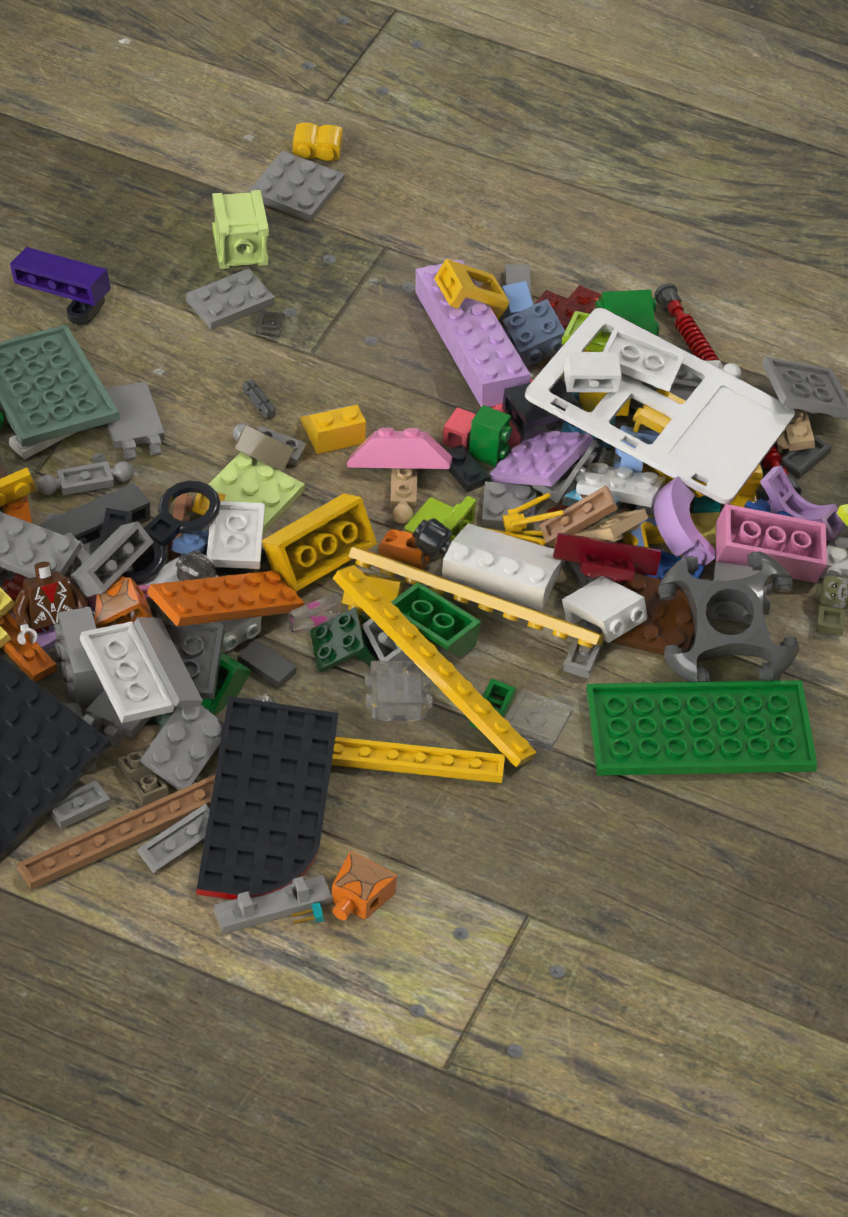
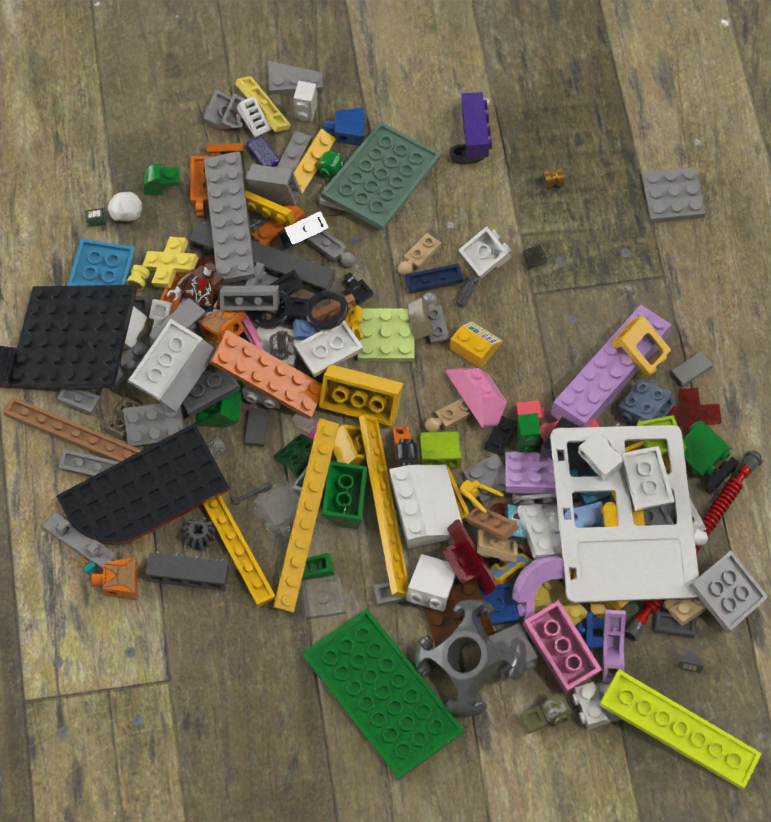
camera: 60 degrees right, 15 degrees up
(40, 660) = (159, 311): none -> white plate
(54, 485) = (302, 230): none -> bracket
(138, 419) = (397, 237): light grey tile -> none
(157, 483) = (358, 289): none -> black plate
(174, 412) = (419, 254): none -> tan plate
(188, 257) = (553, 178): none -> pearl gold wheel
(218, 415) = (434, 278): none -> dark blue plate
(228, 355) = (485, 252): none -> white plate
(230, 298) = (541, 222): light grey plate -> none
(240, 229) = (595, 189): yellowish green container -> none
(318, 141) = (720, 181): yellow brick -> none
(345, 731) = (236, 500): none -> dark grey hinge
(363, 782) = (195, 527): none -> dark grey gear
(404, 818) = (187, 571): none -> dark grey brick
(519, 297) = (666, 377): light blue brick -> none
(667, 329) = (725, 470): none -> black plate

